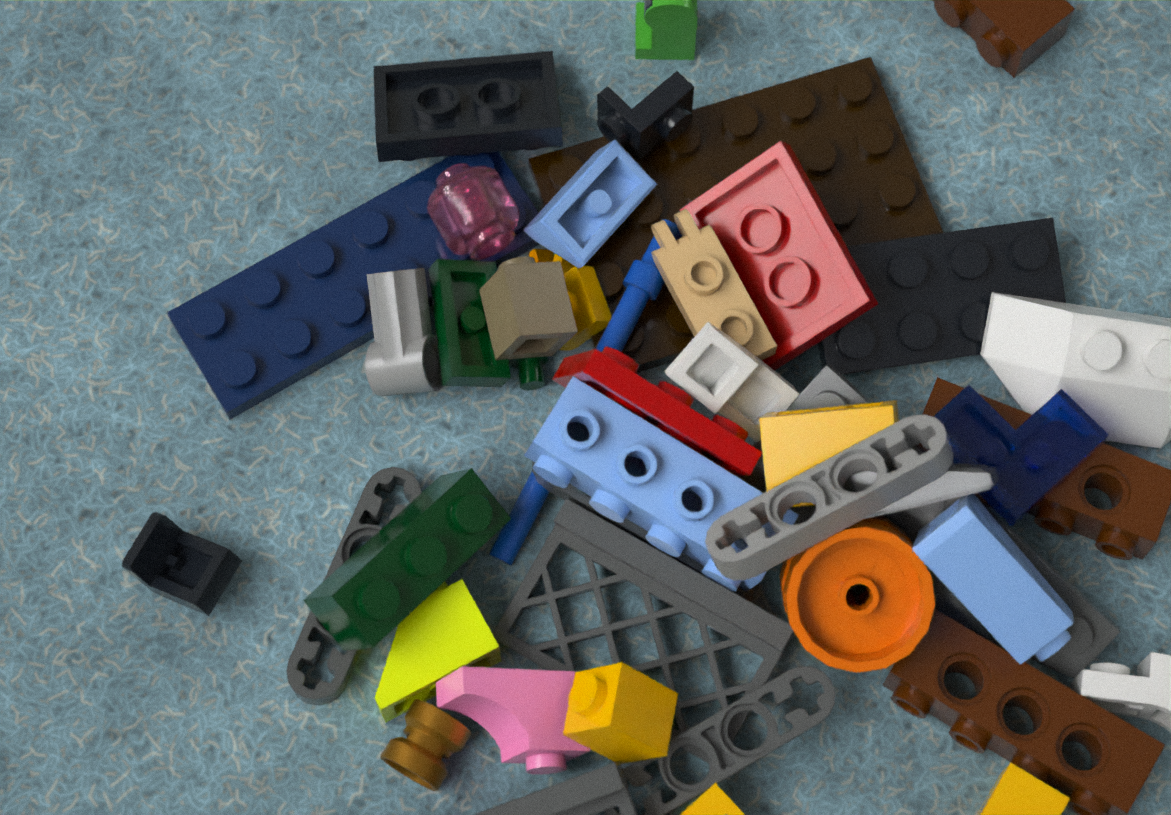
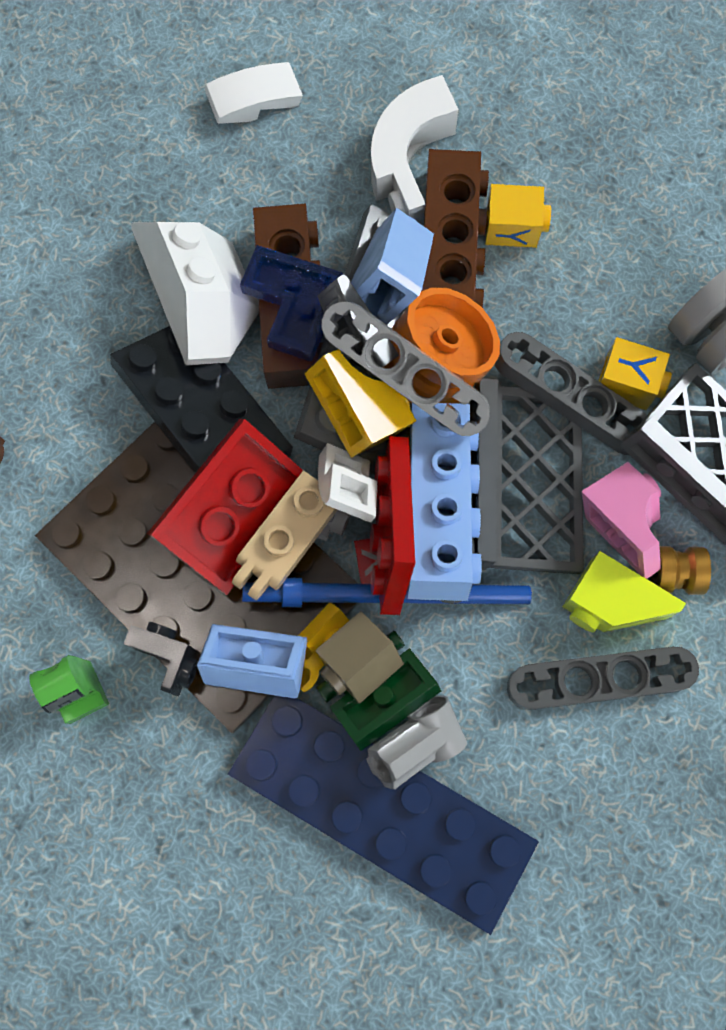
camera: 115 degrees left, 5 degrees up
(180, 564) = (664, 803): black bracket -> none
(407, 560) = (580, 641): dark green brick -> none
(466, 106) = (215, 799): black plate -> none
(473, 211) = (304, 738): clear pink head -> none
(620, 713) = (600, 450): yellow brick -> none

